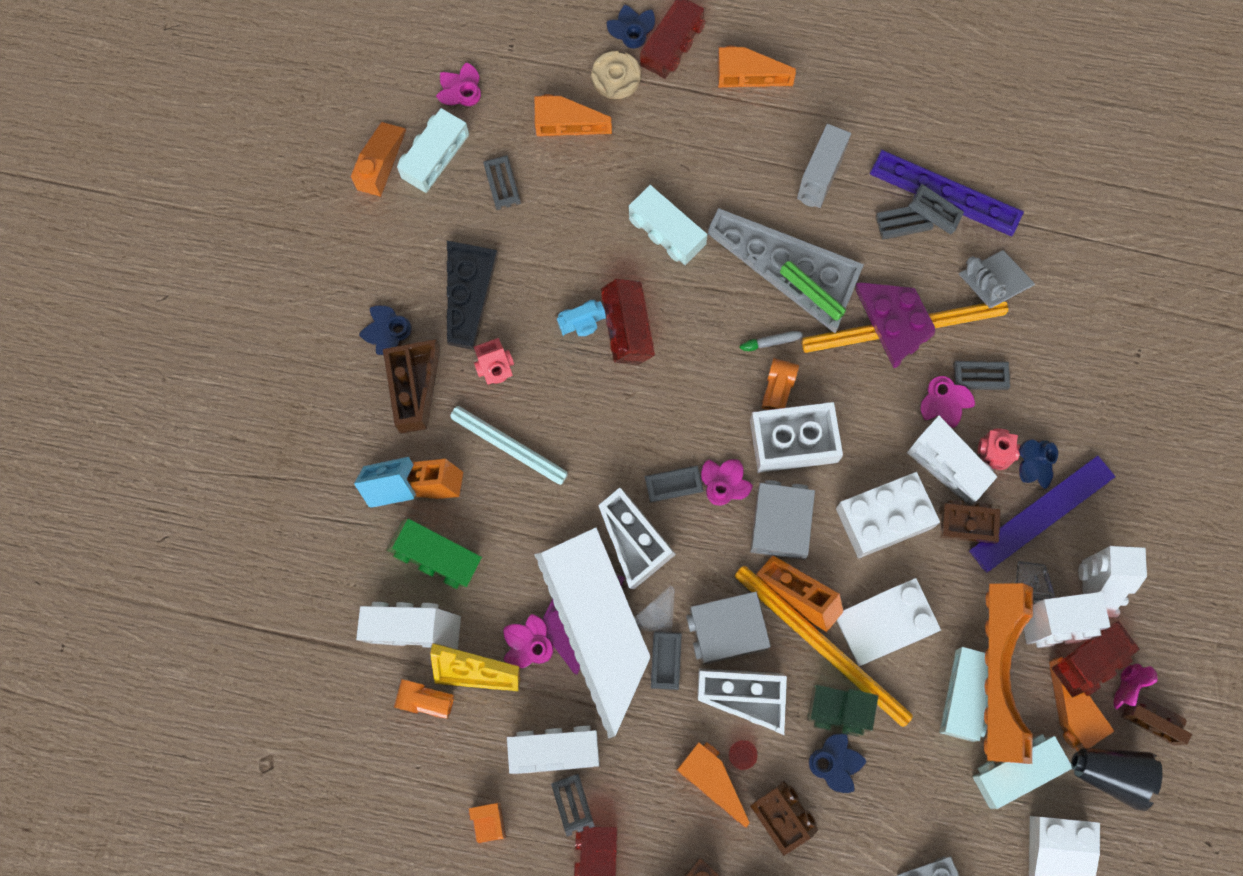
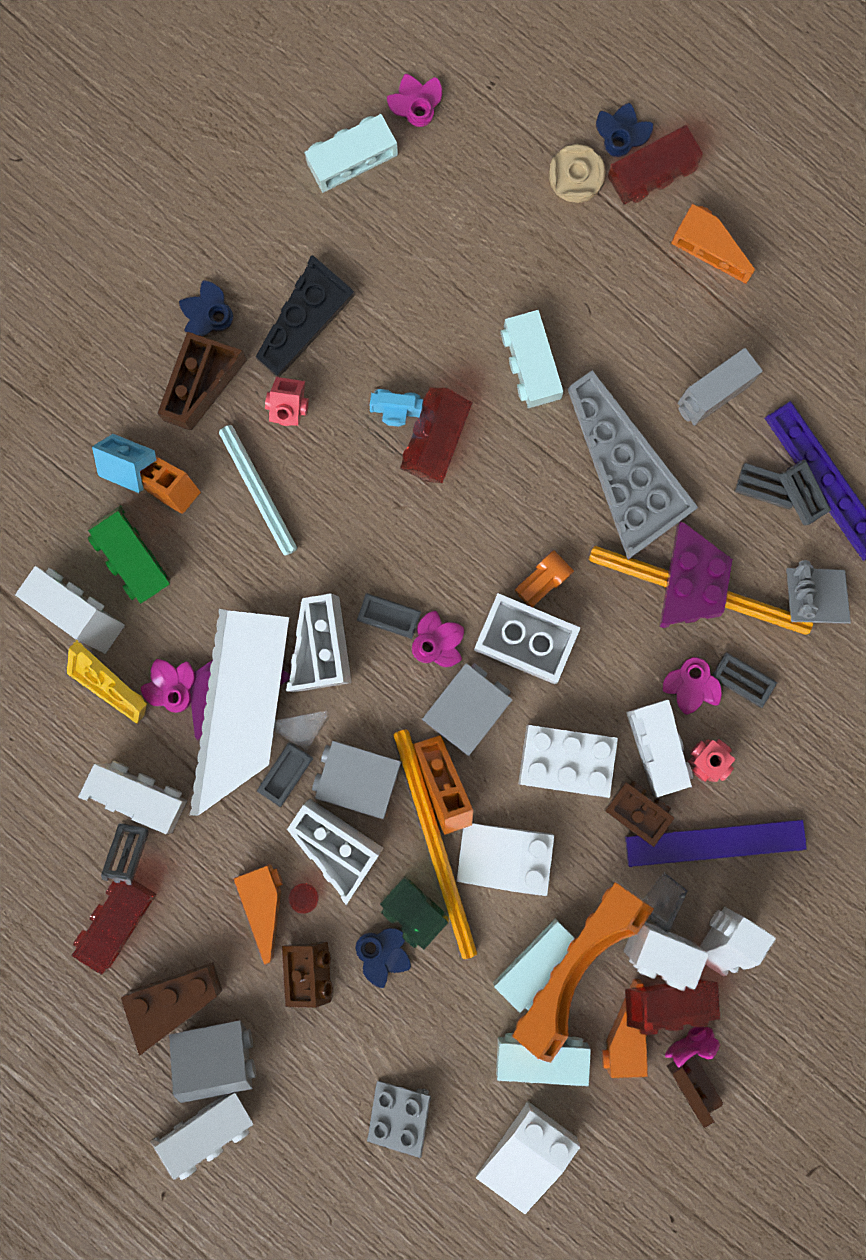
camera: 30 degrees right, 10 degrees up
(377, 159) = (294, 130): orange slope -> none
(417, 698) = (41, 677): orange piece -> none
(488, 822) = (44, 824): orange panel -> none
(507, 201) = (395, 246): dark grey tile -> none
(565, 117) = (496, 189): orange slope -> none
(753, 344) = (544, 524): light grey piece -> none
(813, 290) = (630, 506): bright green axle -> none
(1037, 461) = (741, 793): dark blue plate -> none
(1121, 774) = (627, 1116): black cone -> none

